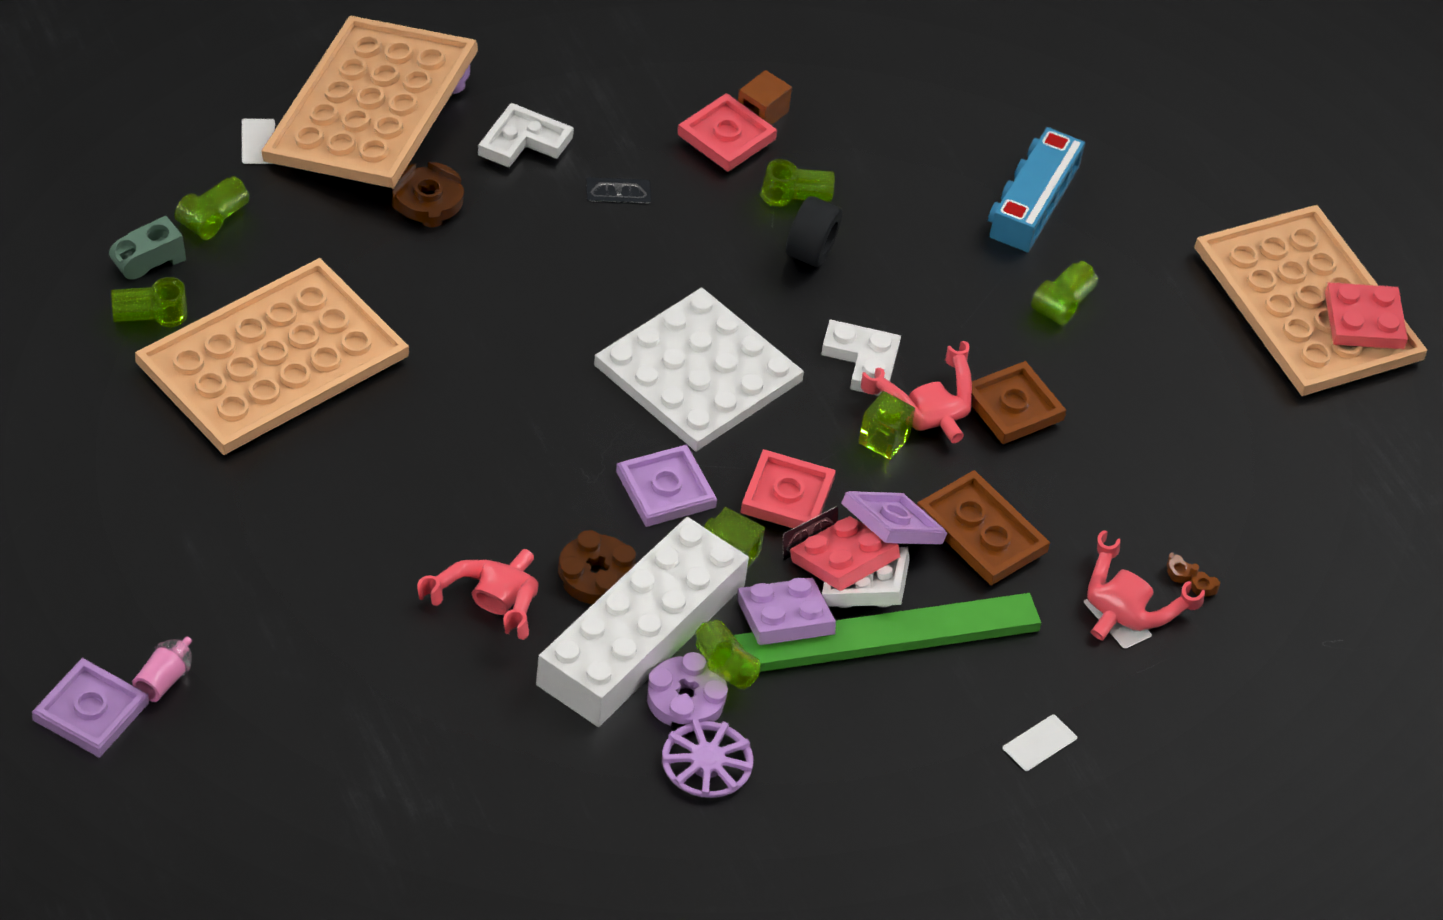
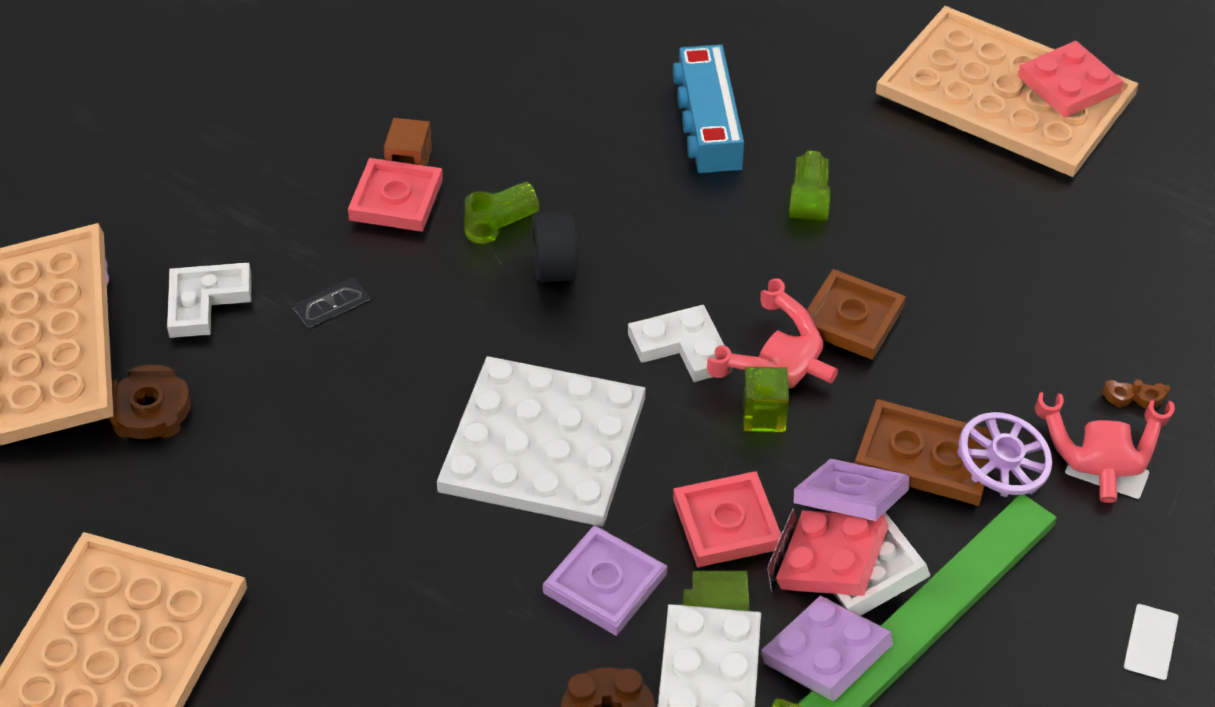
camera: 25 degrees left, 0 degrees up
(1037, 557) = (1004, 453): none -> lavender wheel

